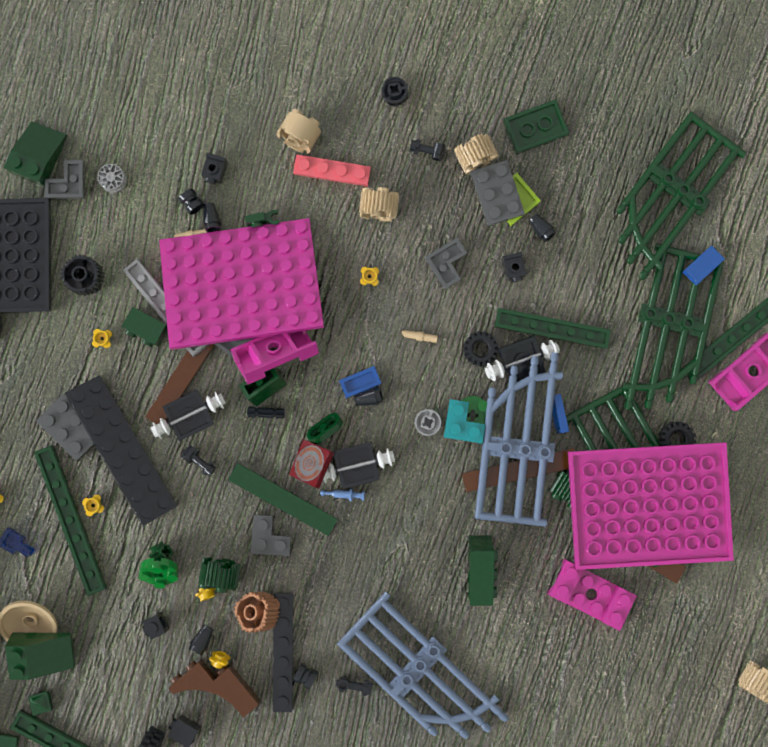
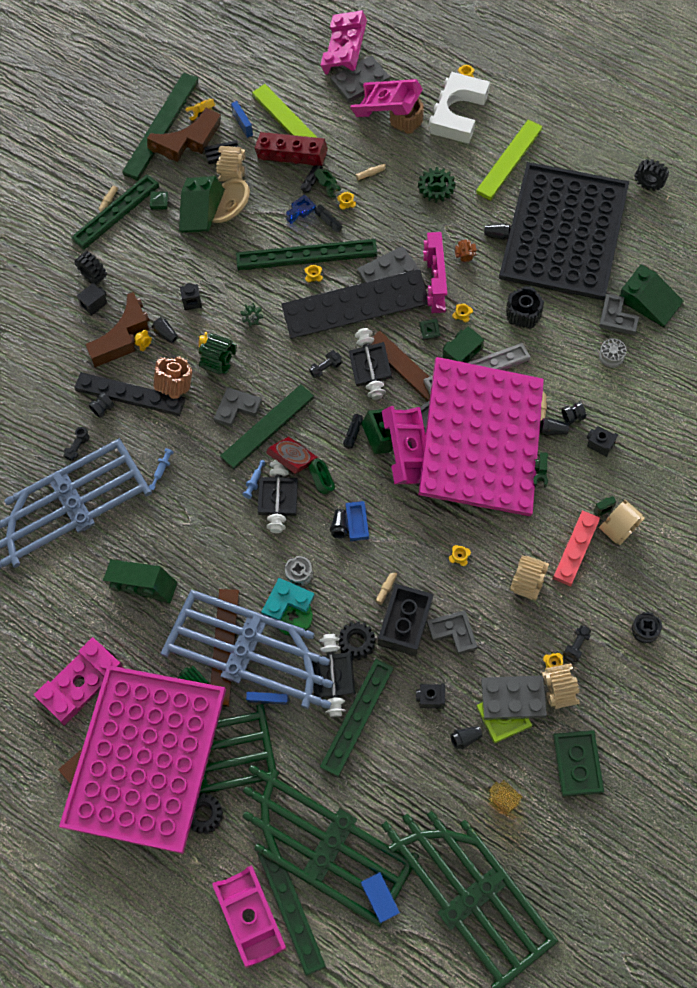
camera: 105 degrees right, 20 degrees down
(19, 509) = (328, 218): none -> black axle
(27, 352) = (465, 250): none -> dark orange gear
(41, 382) = (434, 256): none -> dark pink piece
(130, 367) = (429, 329): none -> dark green tile
(158, 572) = (236, 309): green plate -> none
(283, 152) = (604, 506): none -> dark green tile
(356, 591) = (161, 467): none -> medium blue piece
(450, 171) = (548, 659): none -> yellow plate
(451, 307) = (405, 620): none -> black brick
(586, 181) = (504, 797): none -> clear yellow brick

